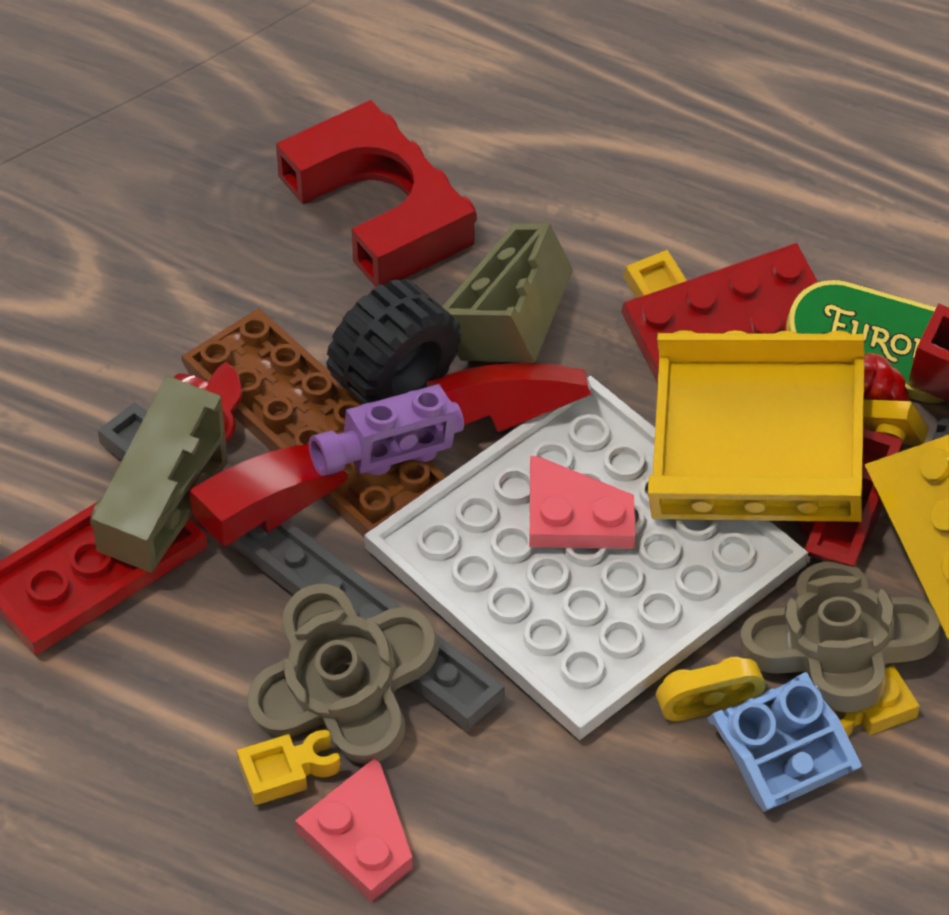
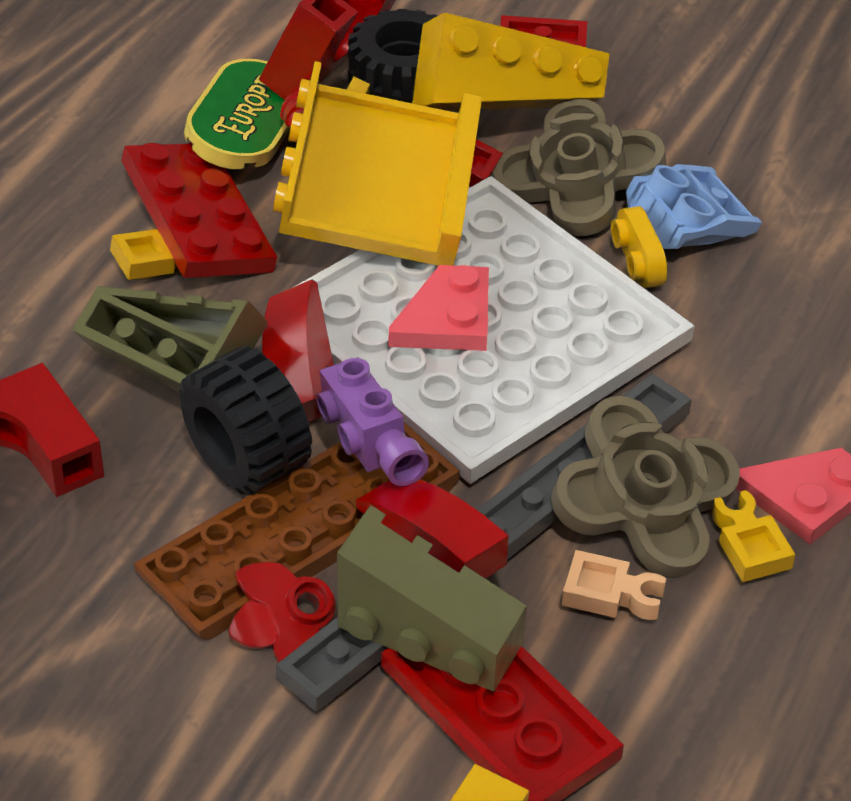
camera: 90 degrees left, 5 degrees down
(223, 642) = (603, 585): none -> light nougat plate

